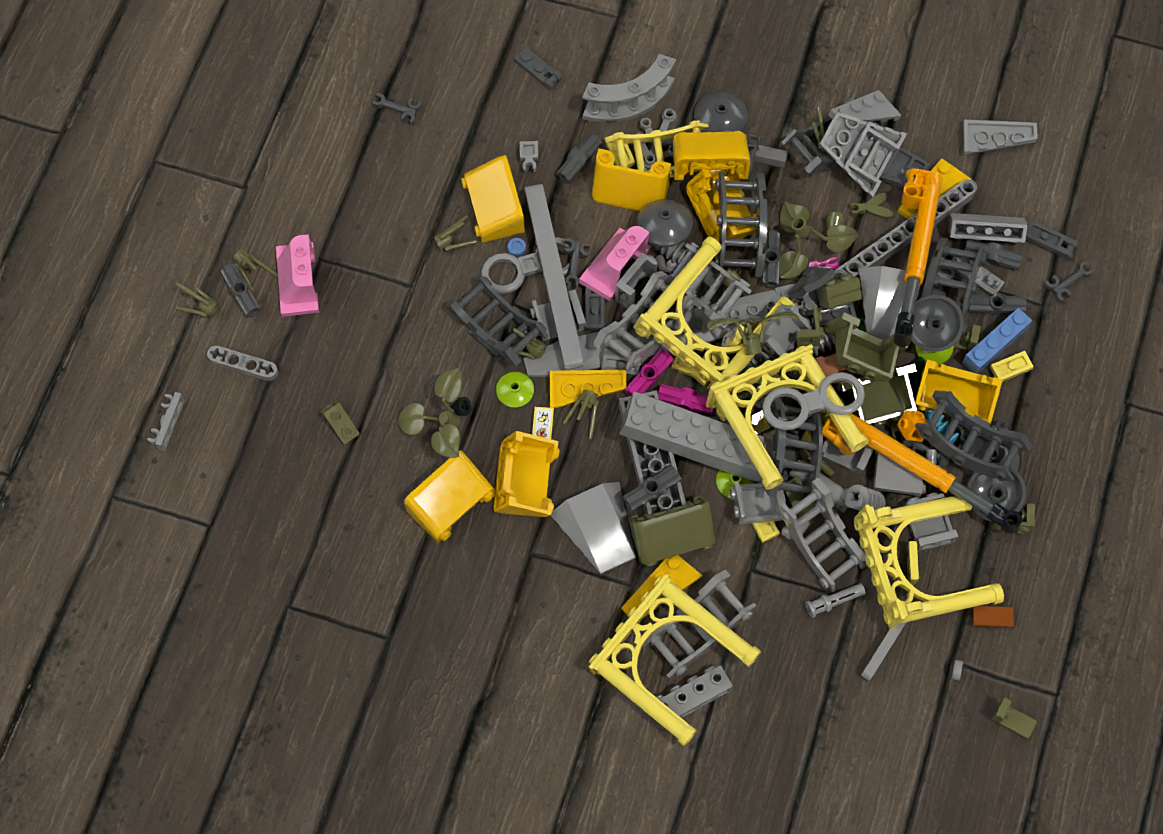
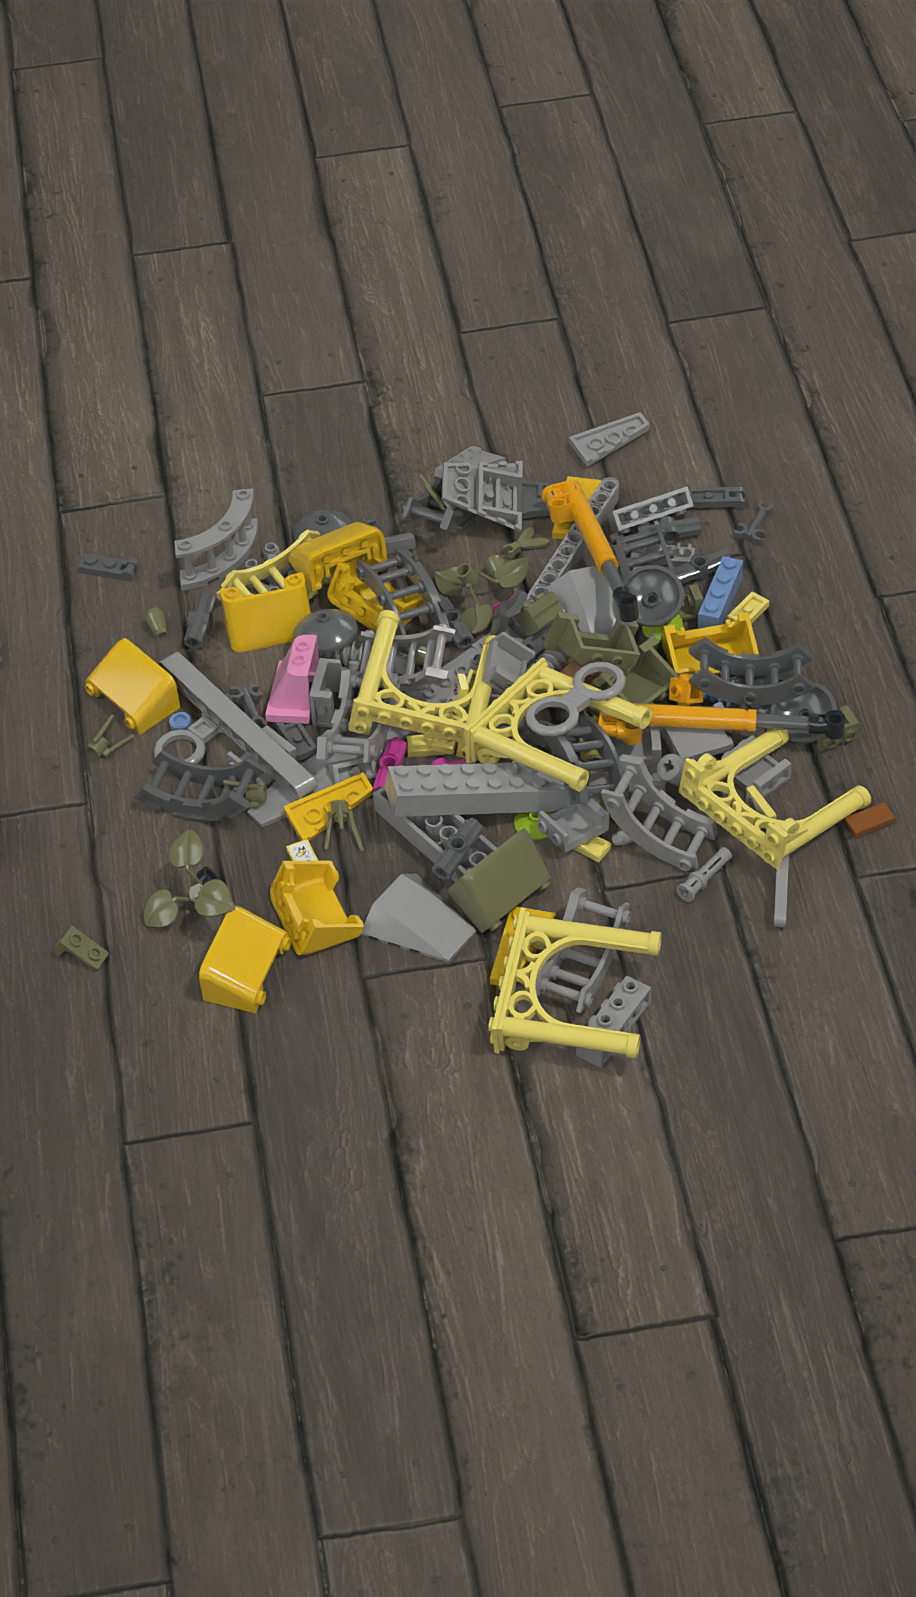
camera: 25 degrees left, 20 degrees down
(519, 396) = (254, 843): lime dish -> none
(529, 154) = (144, 638): light grey plate -> none
(546, 142) = (157, 622): none -> olive cone
(752, 341) = (480, 679): olive plant -> none
(806, 336) = (536, 653): olive bracket -> none
(957, 670) = (865, 877): light grey tile -> none

